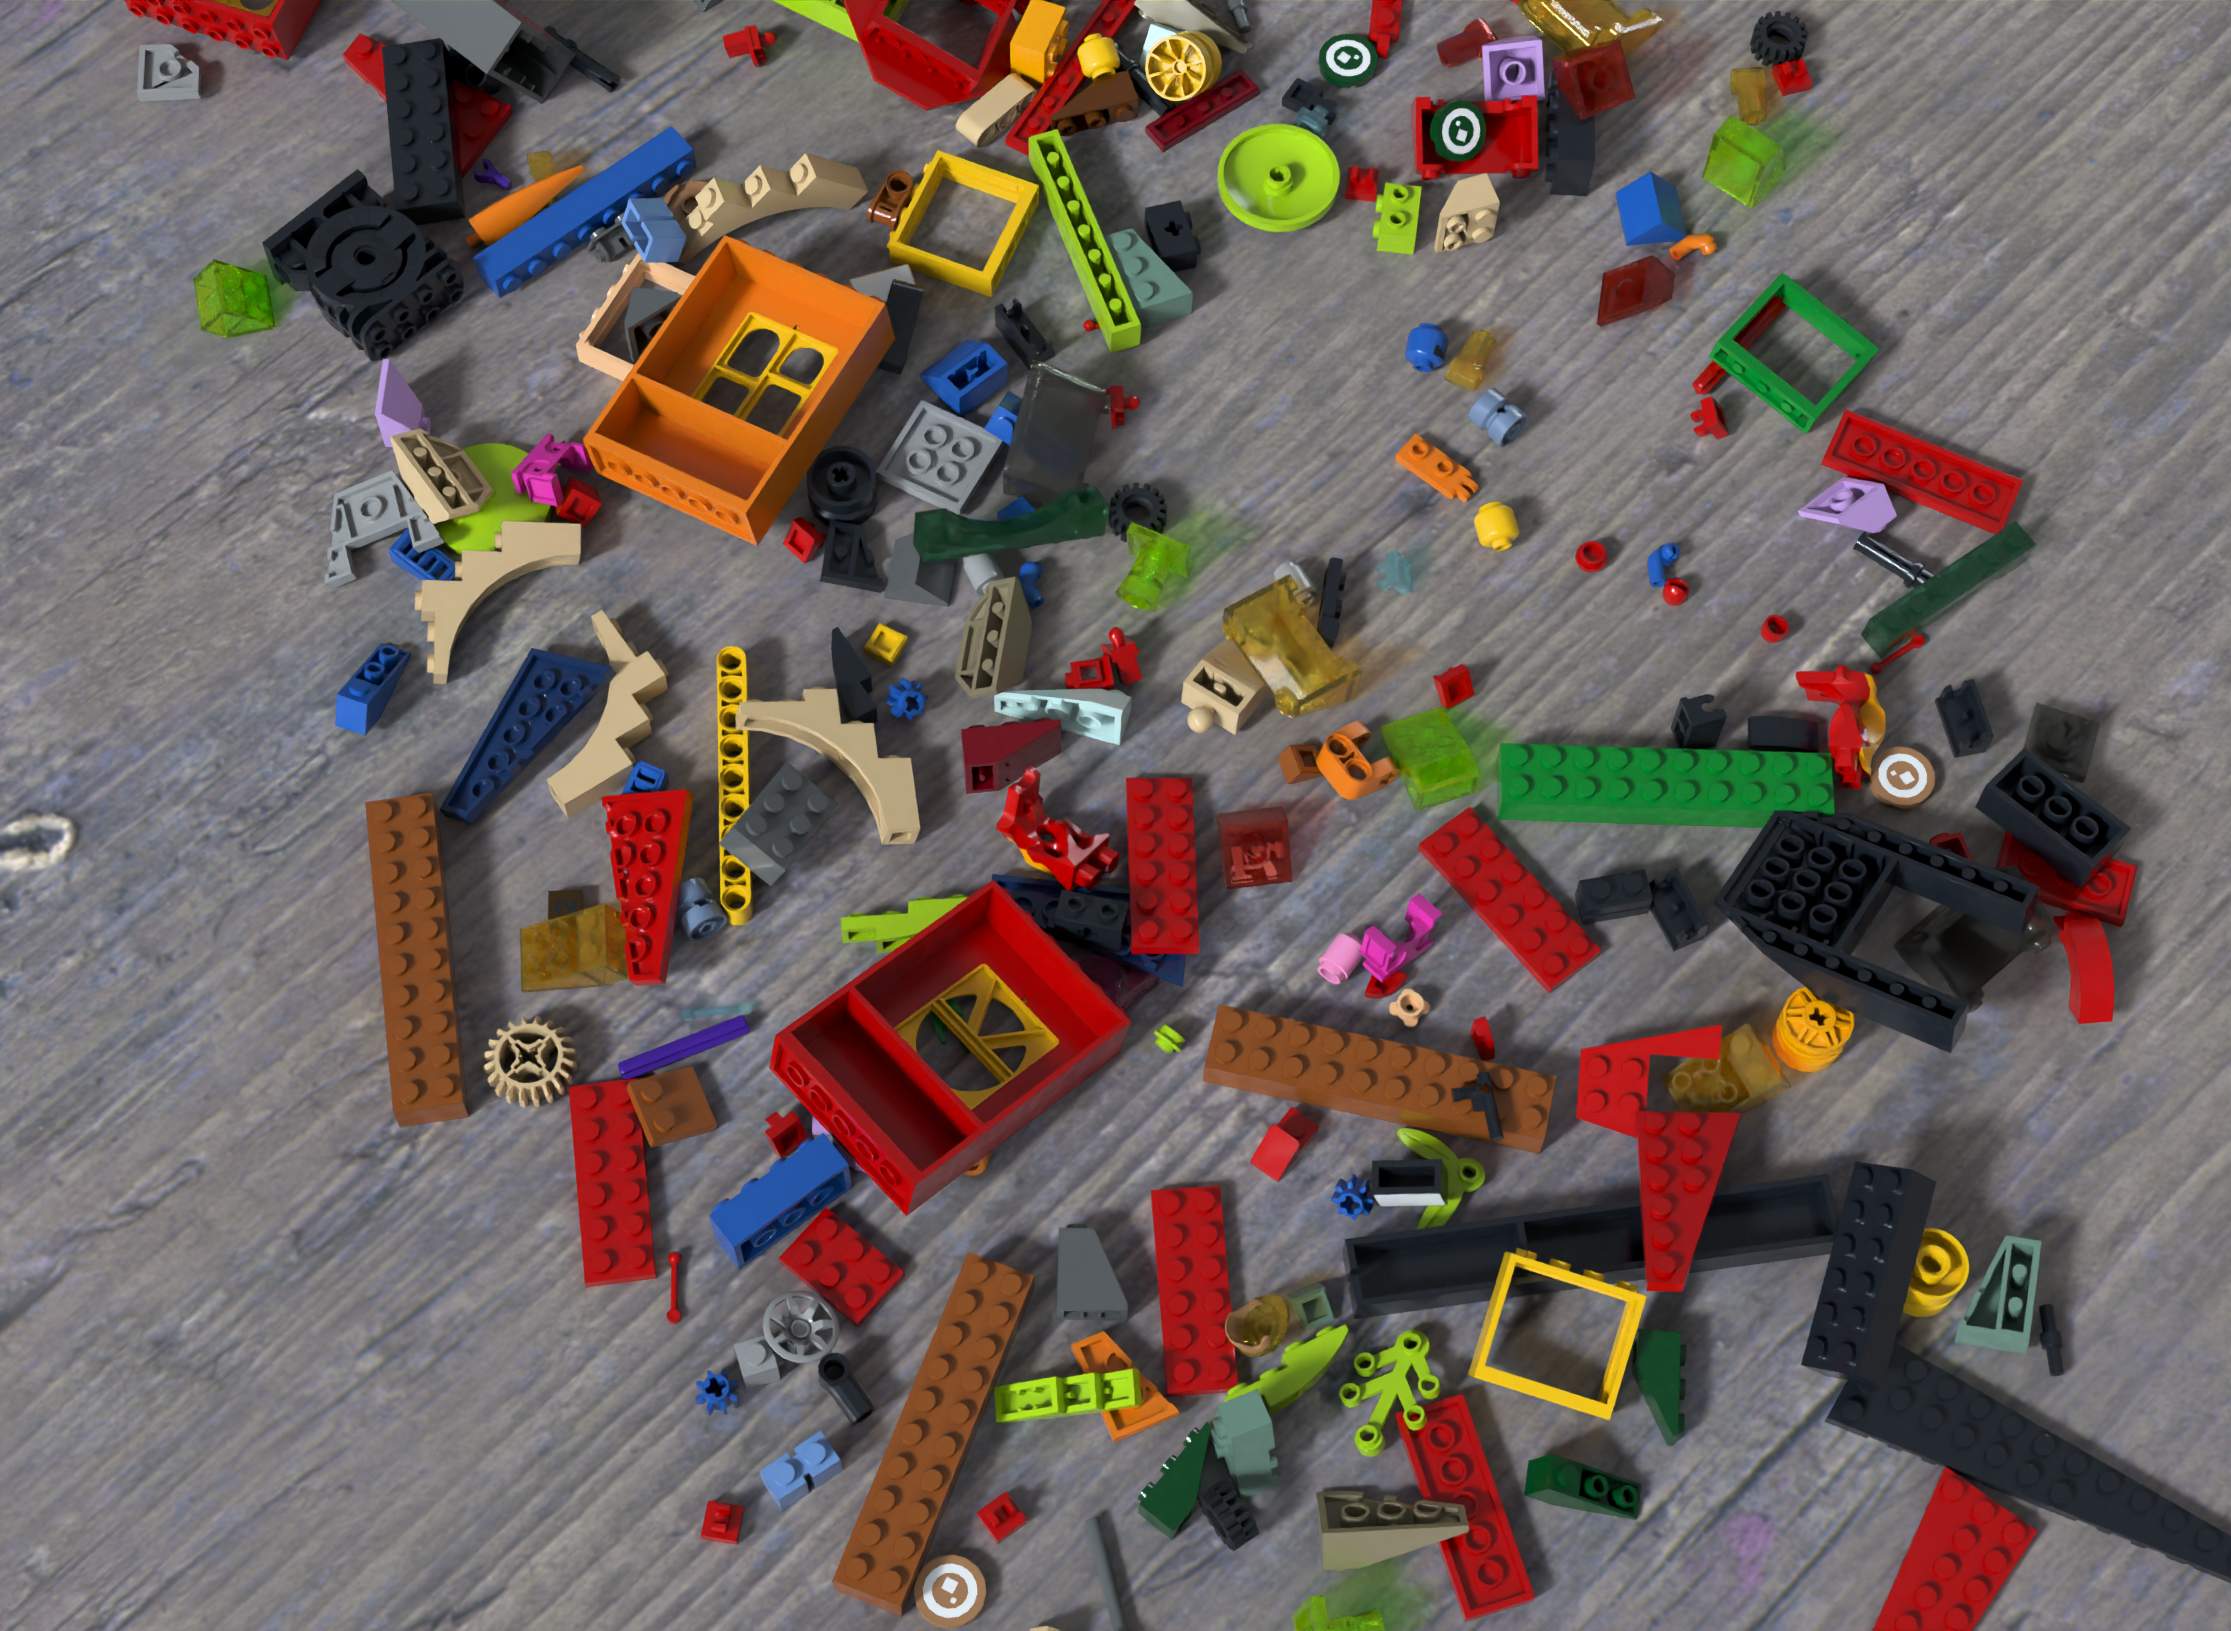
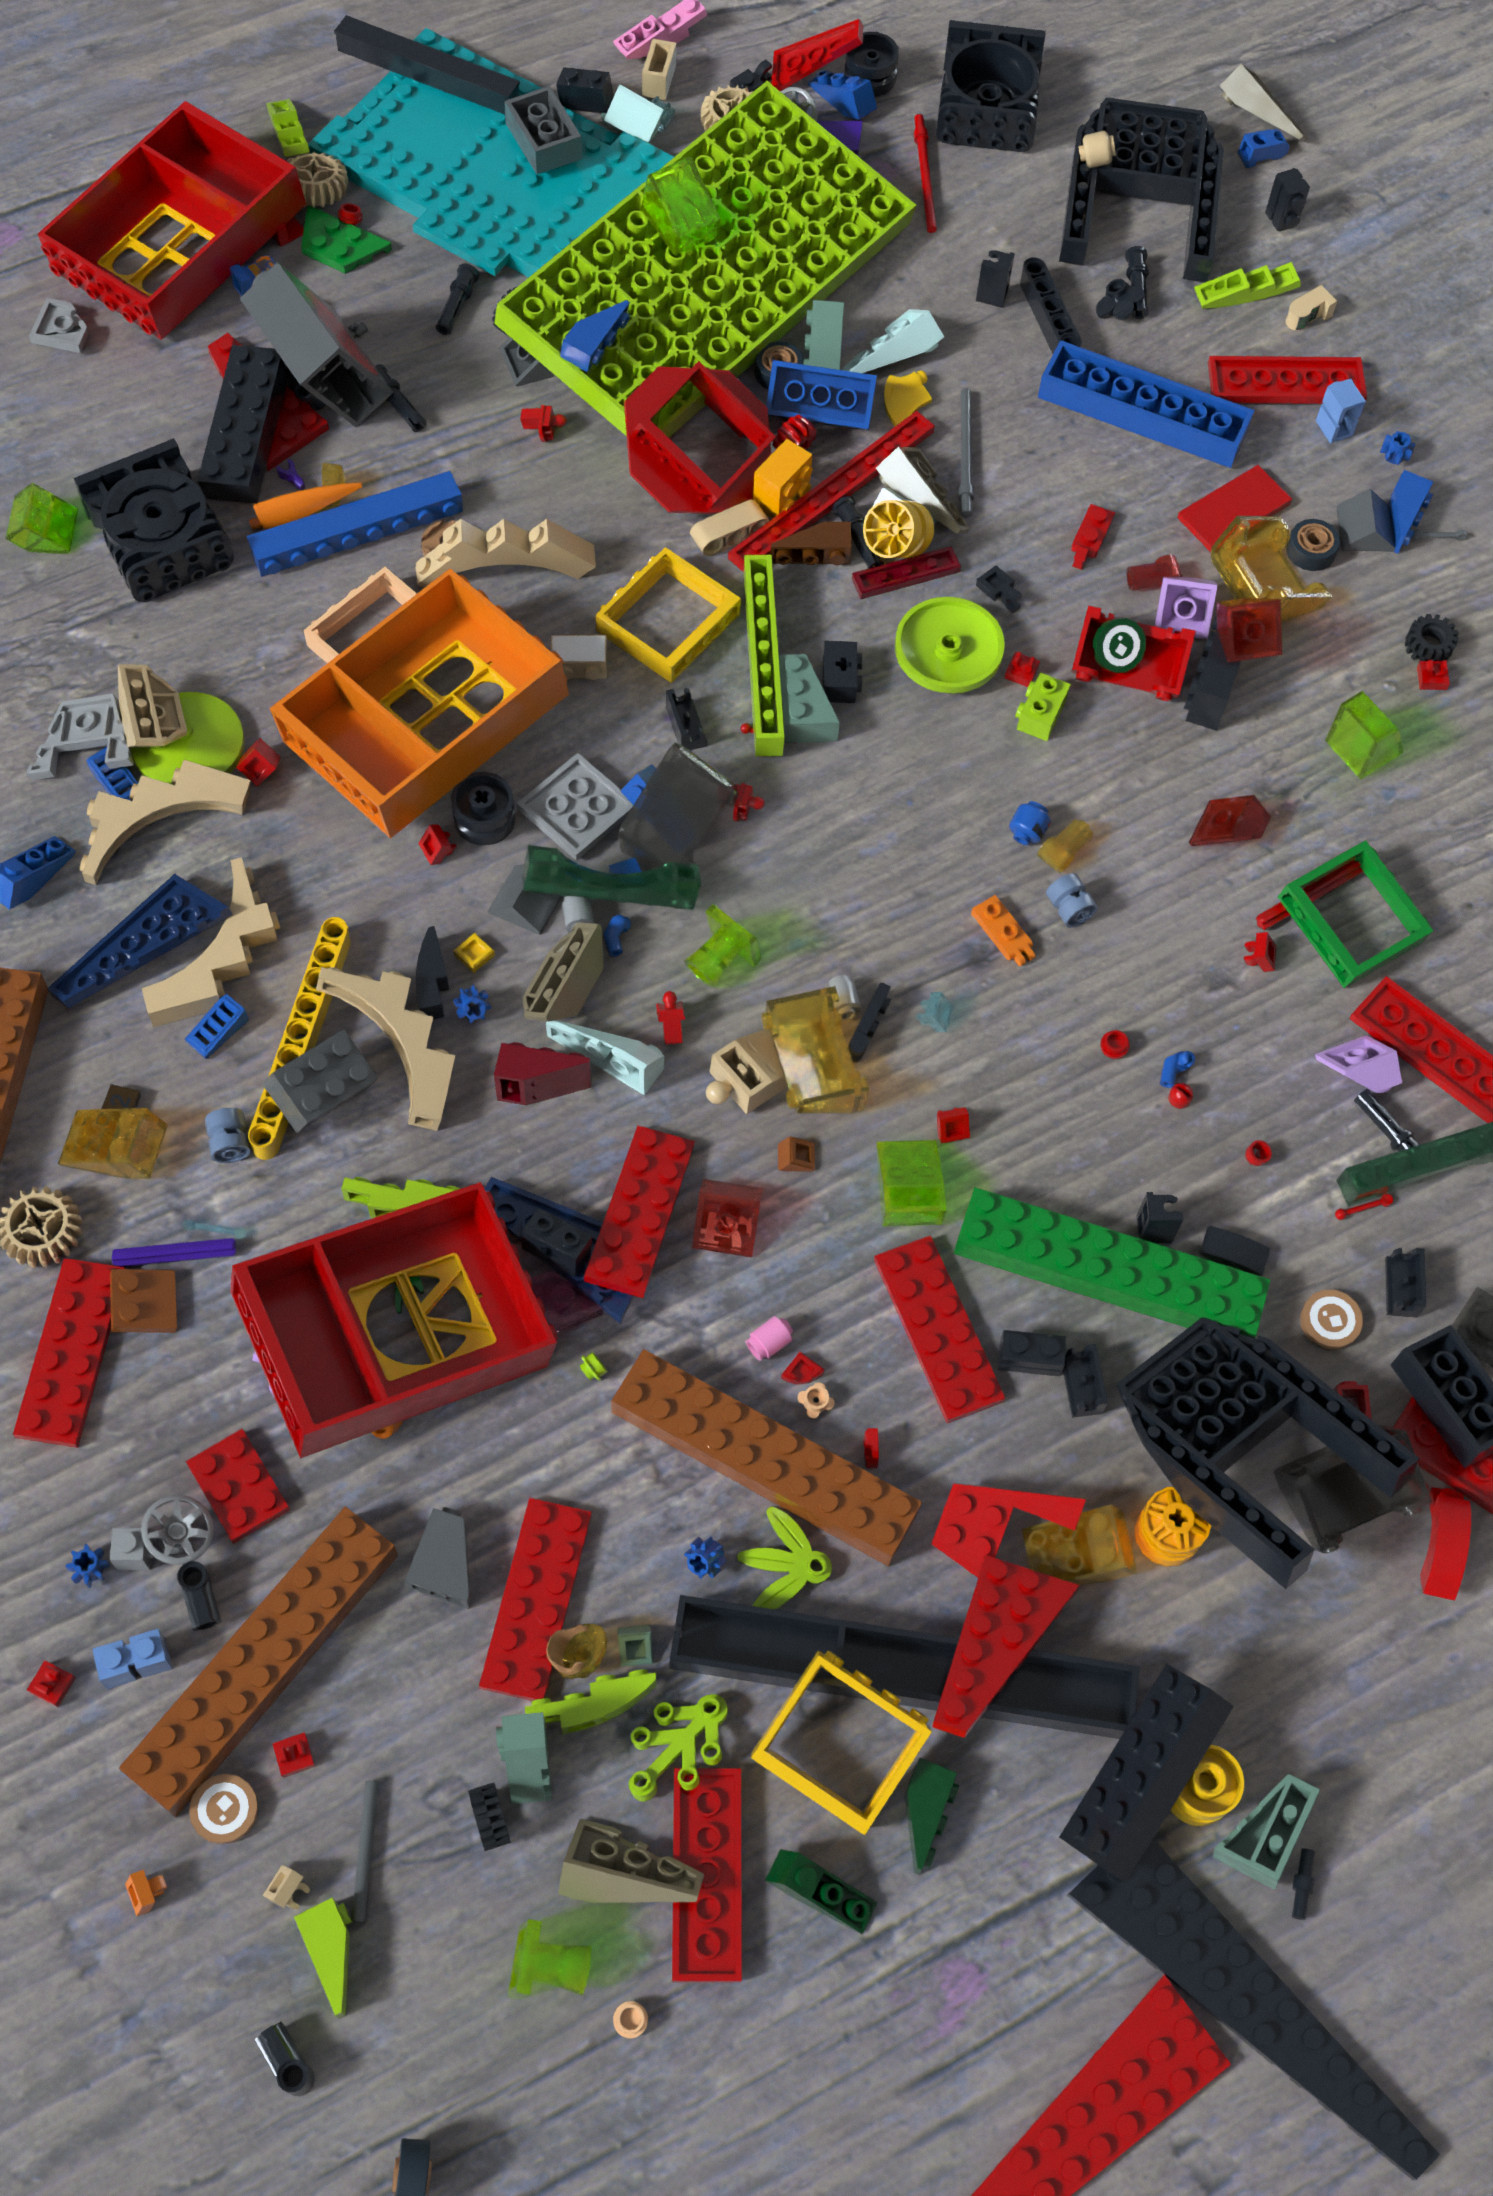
camera: 15 degrees right, 0 degrees up
(397, 405) = (136, 642): lavender slope -> none
(539, 467) = (229, 727): dark pink piece -> none
(607, 241) = (365, 551): dark grey hinge -> none
(645, 316) = (362, 616): dark grey slope -> none
(647, 869) = (196, 1086): red wing -> none
(653, 230) = (402, 552): medium blue piece -> none
(673, 1314) = (79, 1485): red hinge -> none
(780, 1200) = (200, 1411): blue brick -> none
(785, 1133) = (230, 1353): red tile -> none
(848, 558) = (468, 870): black wing -> none
(888, 203) = (612, 577): dark orange piece -> none
(903, 308) = (581, 681): black beam -> none
(967, 376) = (623, 743): blue slope -> none
(1062, 857) = (556, 1181): red hips -> none
(1067, 1396) = (388, 1662): lime slope -> none
(1090, 674) = (637, 1026): red window -> none
(1098, 56) = (829, 503): yellow head -> none
(1102, 1356) = (437, 1669): orange wing -> none
(1137, 497) = (732, 885): black tyre -> none
(1175, 1495) = (447, 1785): dark green slope -> none
(1284, 1144) = (662, 1490): red slope -> none
(1313, 120) = (996, 605): clear light blue tile -> none
(1348, 60) = (1046, 562): dark green tile -> none
(1348, 768) = (838, 1169): orange piece -> none
(1386, 956) = (809, 1350): dark pink piece -> none
(1410, 1182) = (757, 1560): black brick -> none
(1468, 214) = (1102, 718): tan slope -> none
(1482, 1102) = (845, 1507): black hose -> none
(1496, 526) = (1038, 994): yellow head -> none
(1650, 211) = (1269, 758): blue slope -> none
(1690, 242) = (1294, 794): orange arm -> none
(1749, 88) = (1390, 674): clear yellow piece -> none
(1856, 725) = (1303, 1259): red hips -> none

